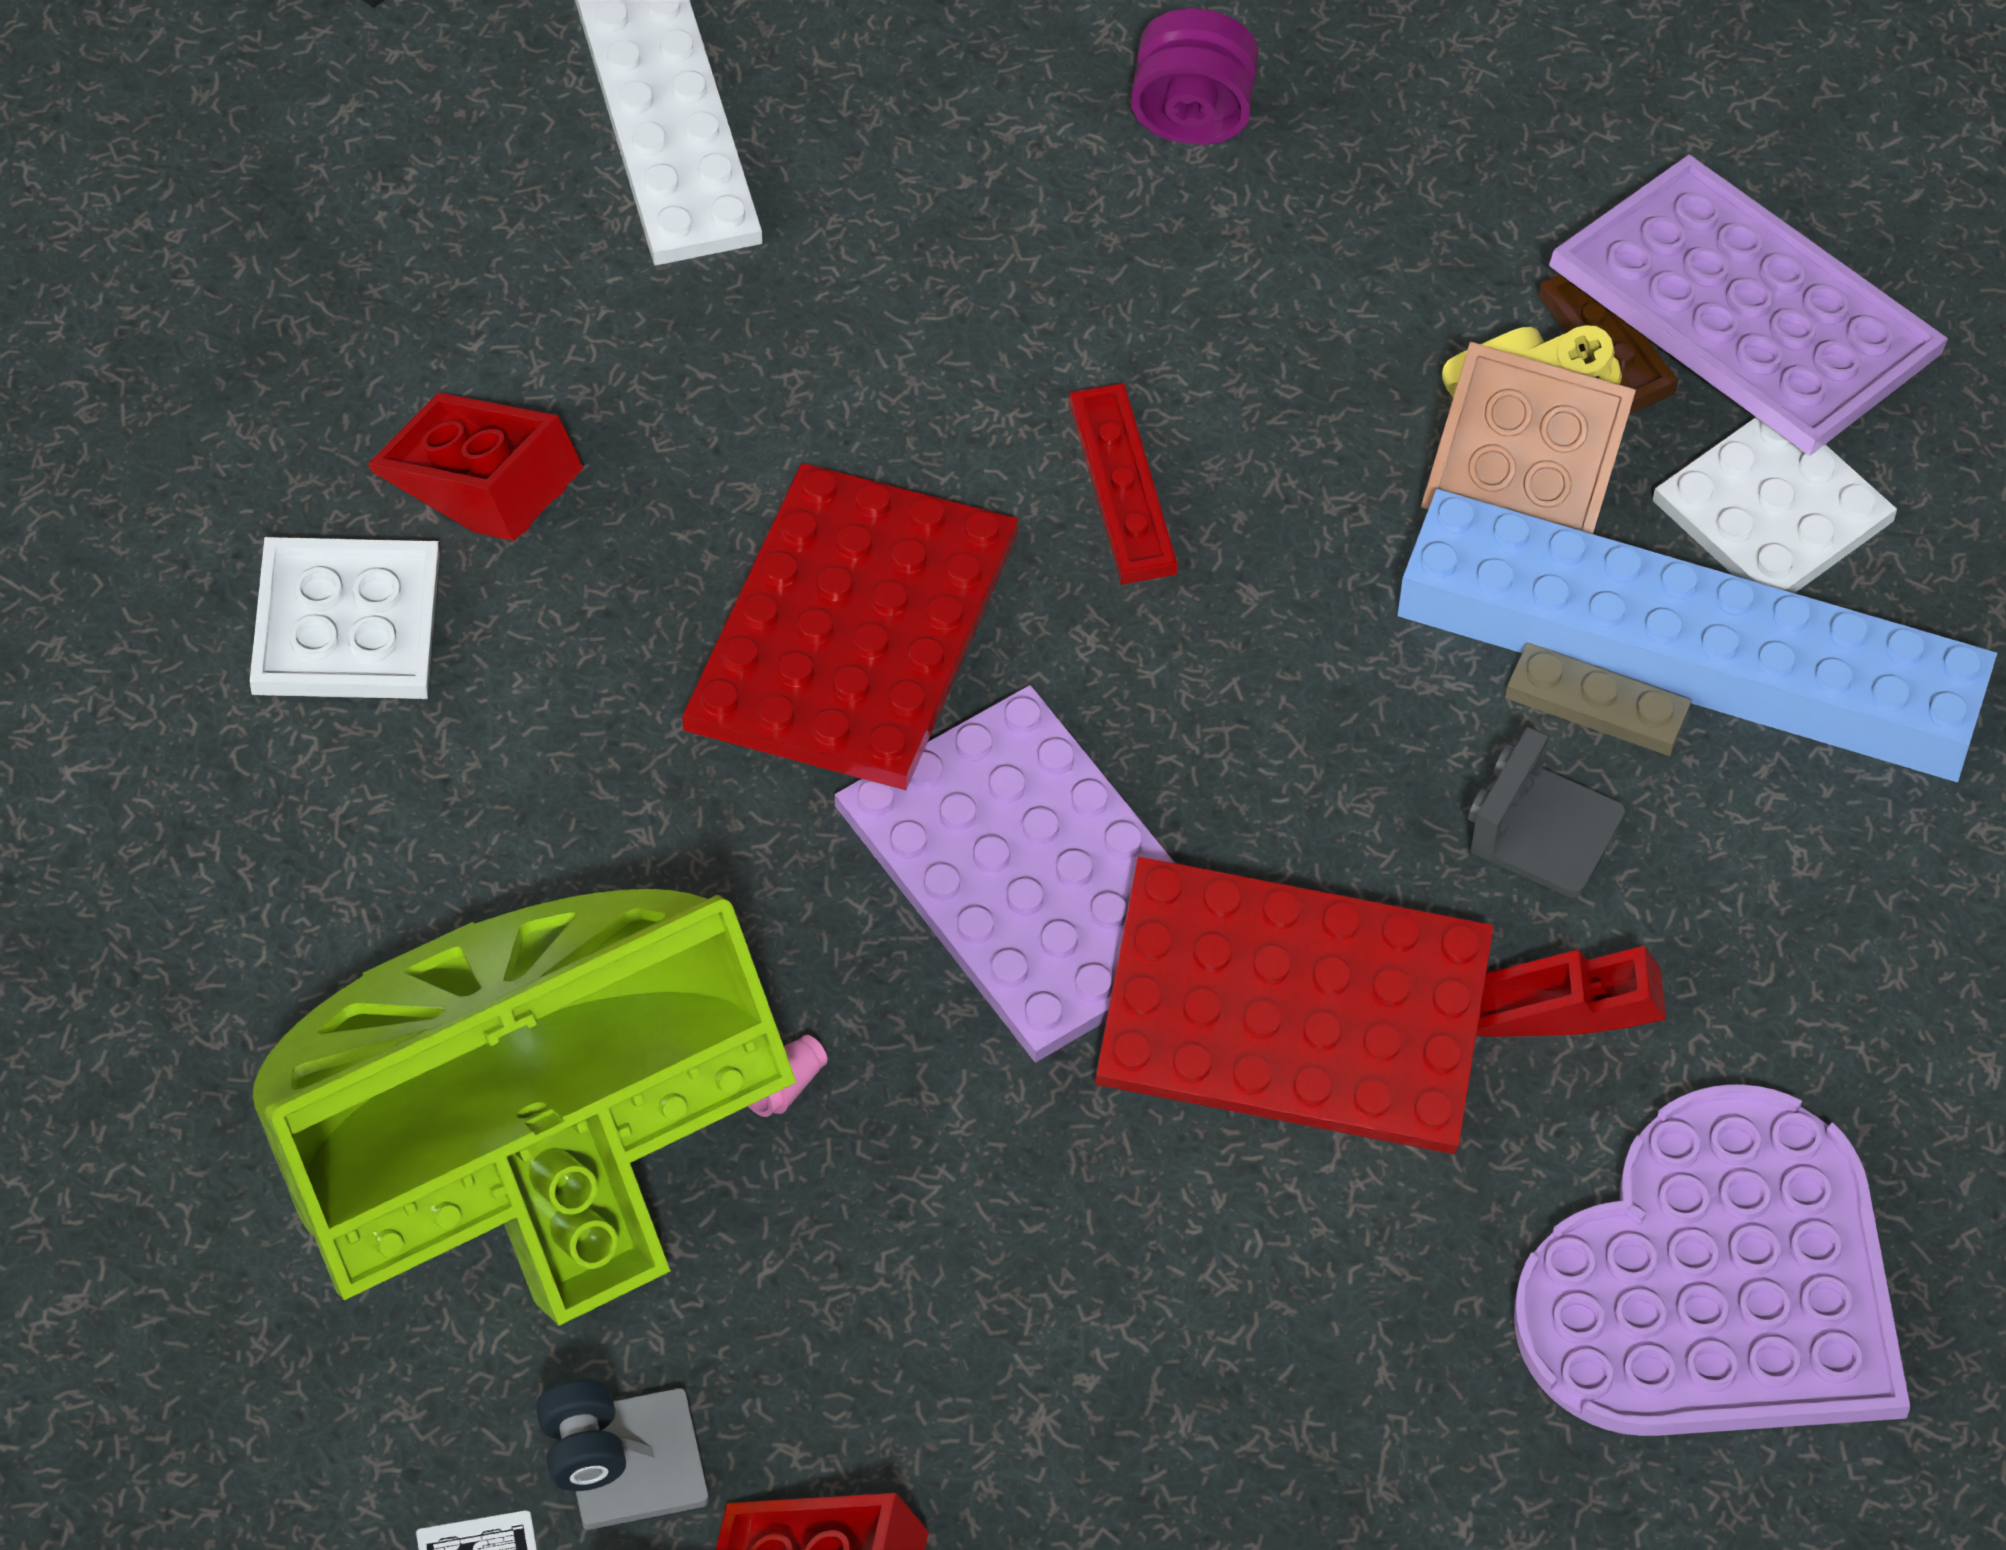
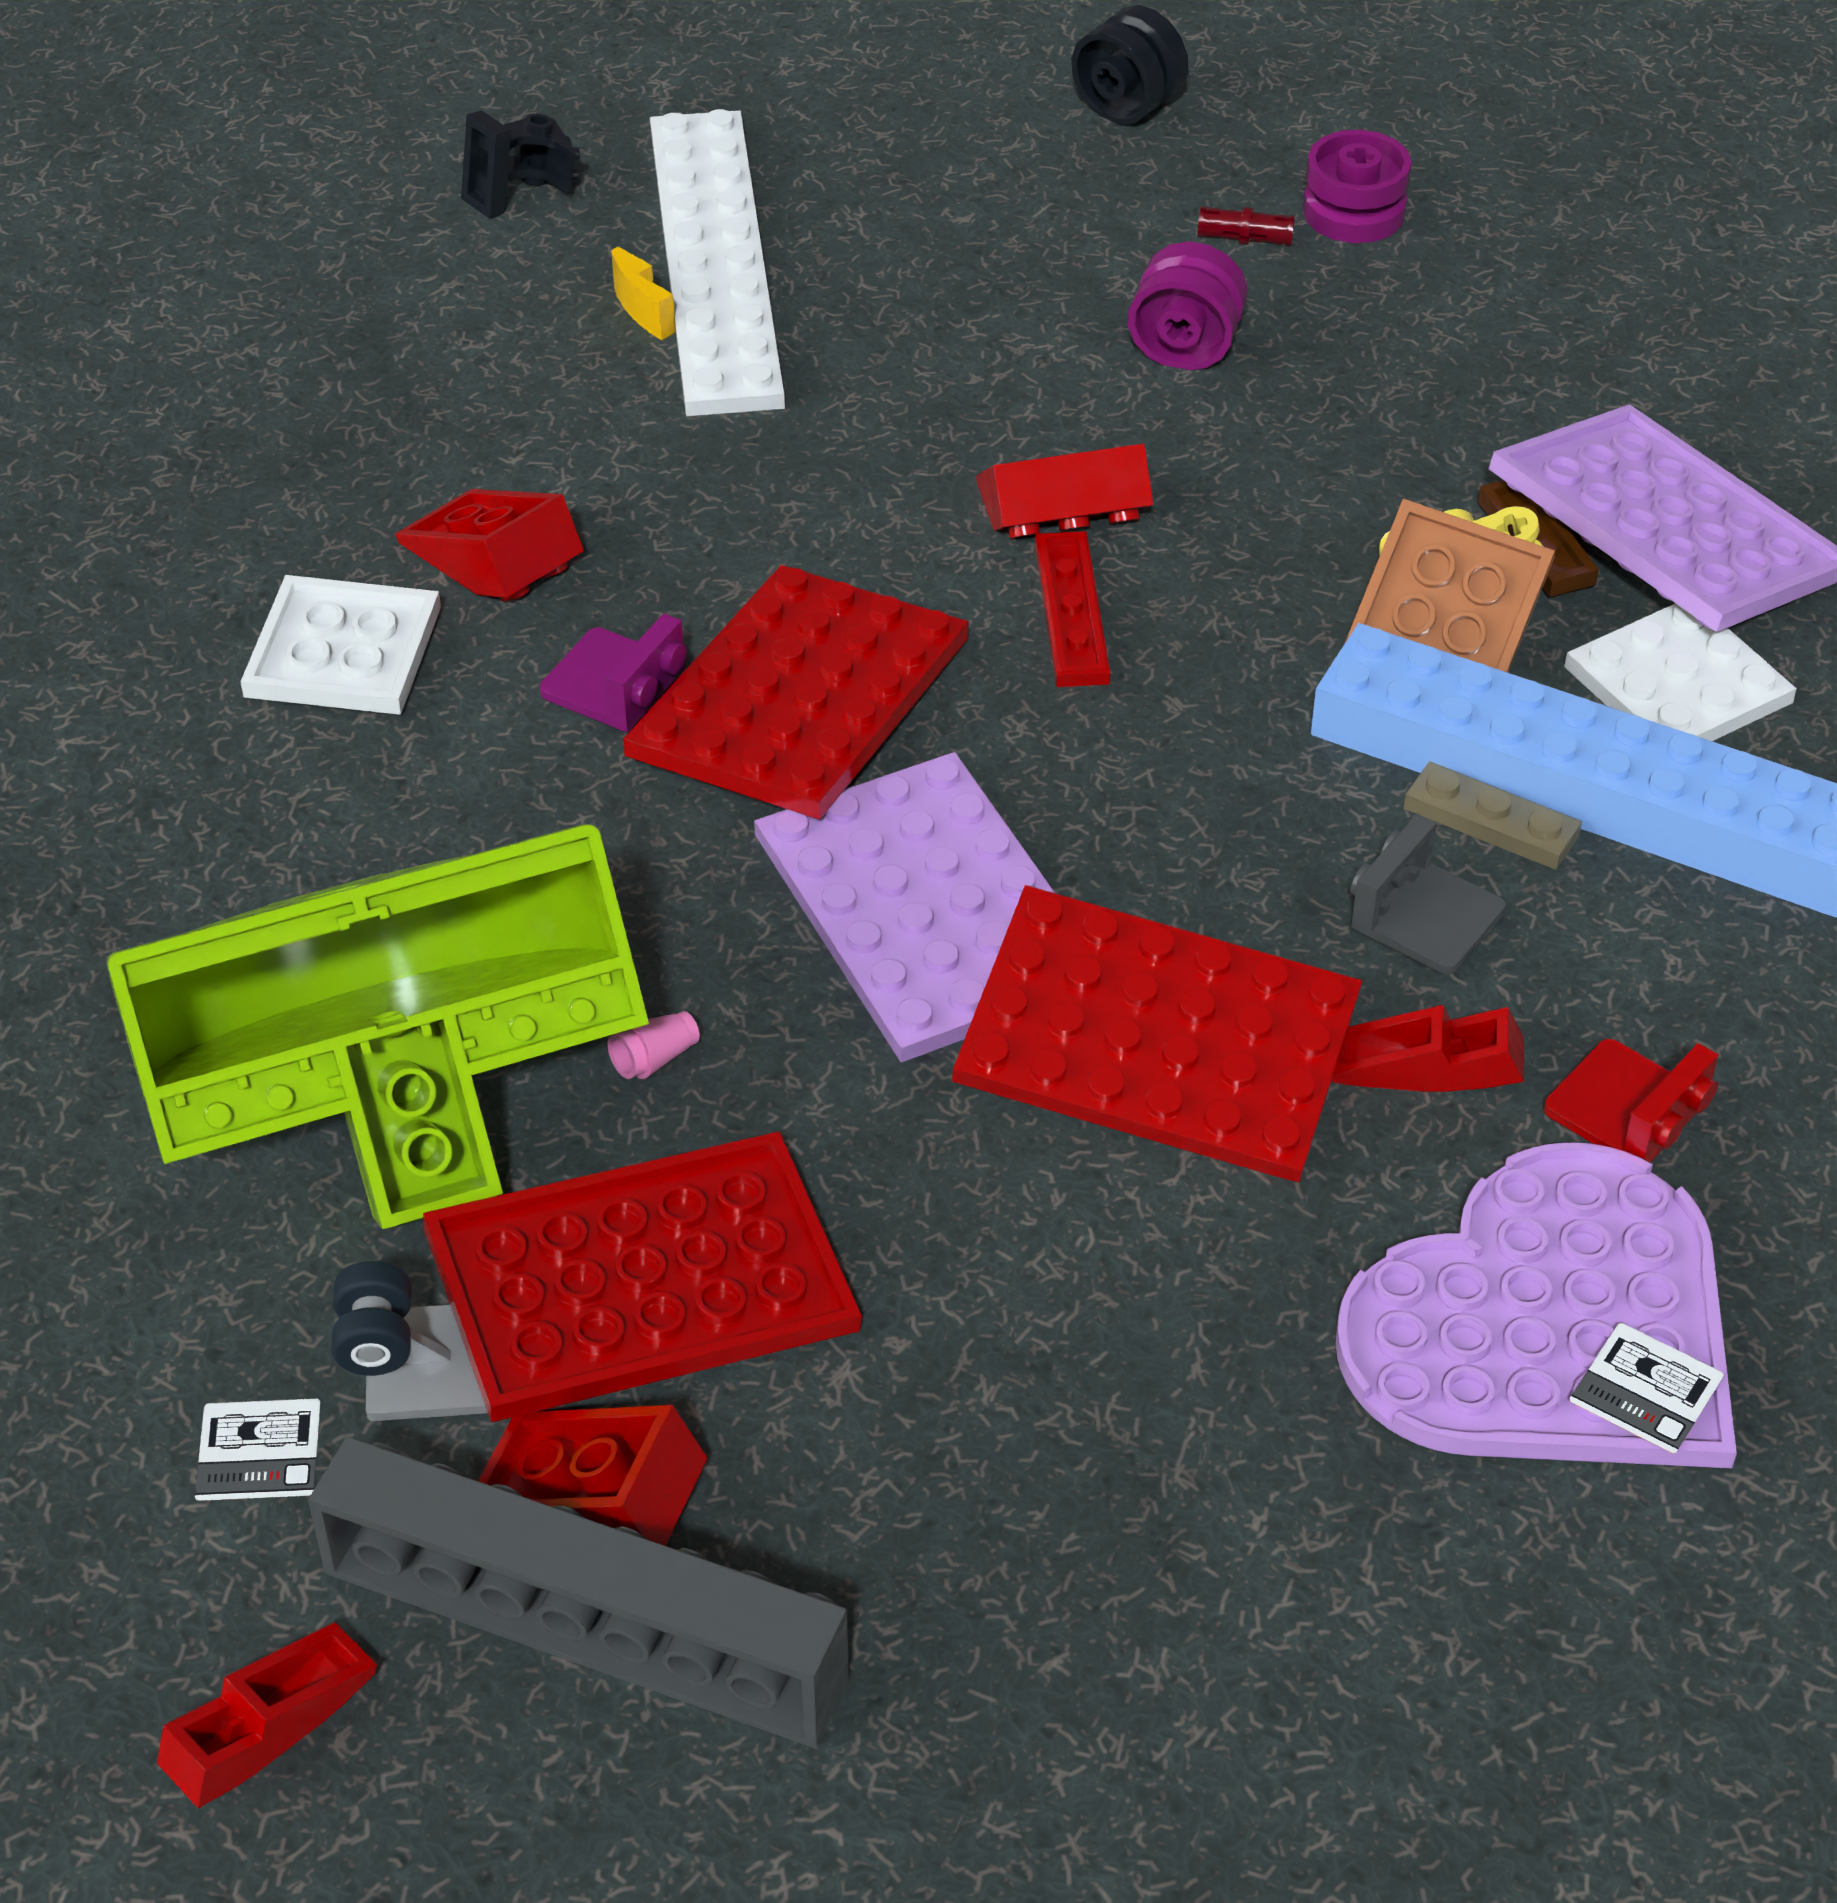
camera: 10 degrees right, 10 degrees down
(566, 101) = (641, 298): none -> yellow slope
(650, 625) = (616, 676): none -> magenta bracket
(823, 1342) = (638, 1275): none -> red plate
(1095, 333) = (1067, 490): none -> red slope
(1773, 1027) = (1631, 1101): none -> red bracket
(1819, 1348) = (1647, 1387): none -> sticker

